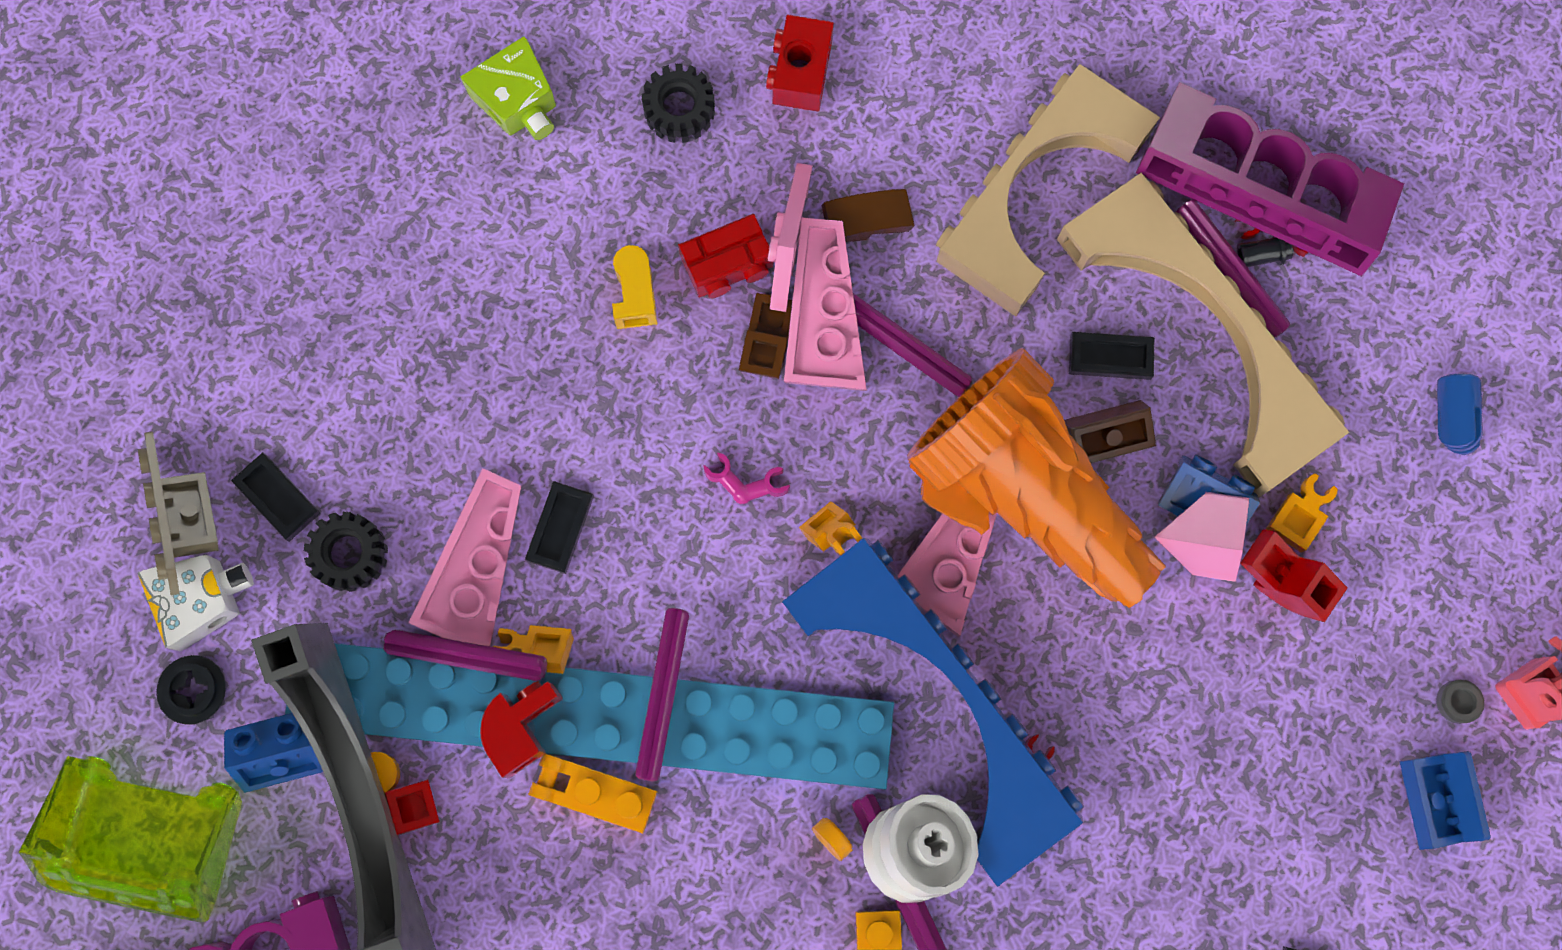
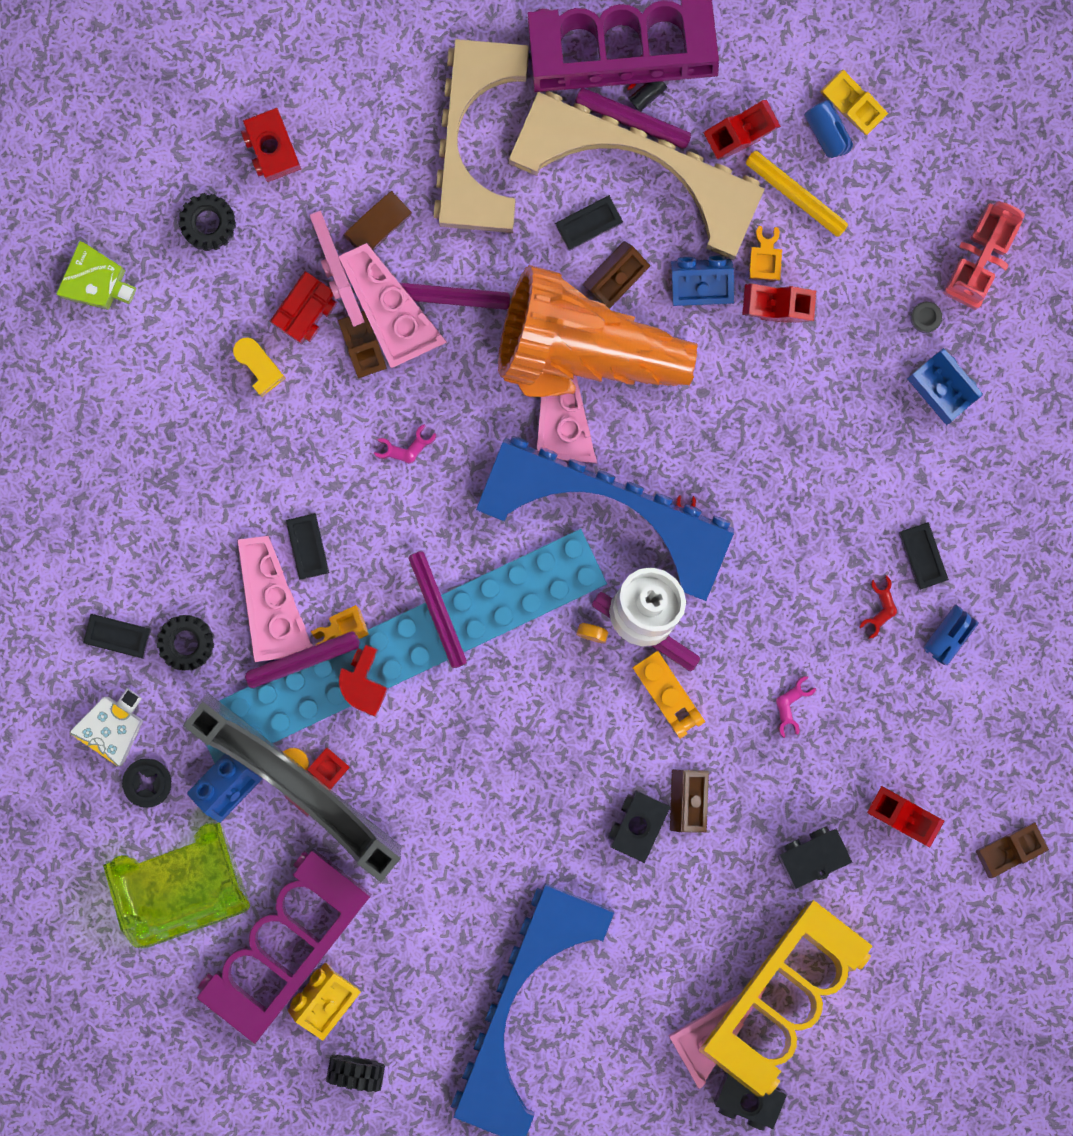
camera: 30 degrees left, 10 degrees up
(183, 513) = (70, 680): dark tan bracket -> none
(595, 793) = (433, 693): light orange plate -> none
(830, 528) = (477, 445): light orange plate -> none
(1209, 536) = (714, 308): bright pink slope -> none
(1349, 354) = (742, 130): none -> red brick
(1379, 465) = (796, 193): none -> yellow axle
(1504, 407) = (853, 102): none -> yellow slope

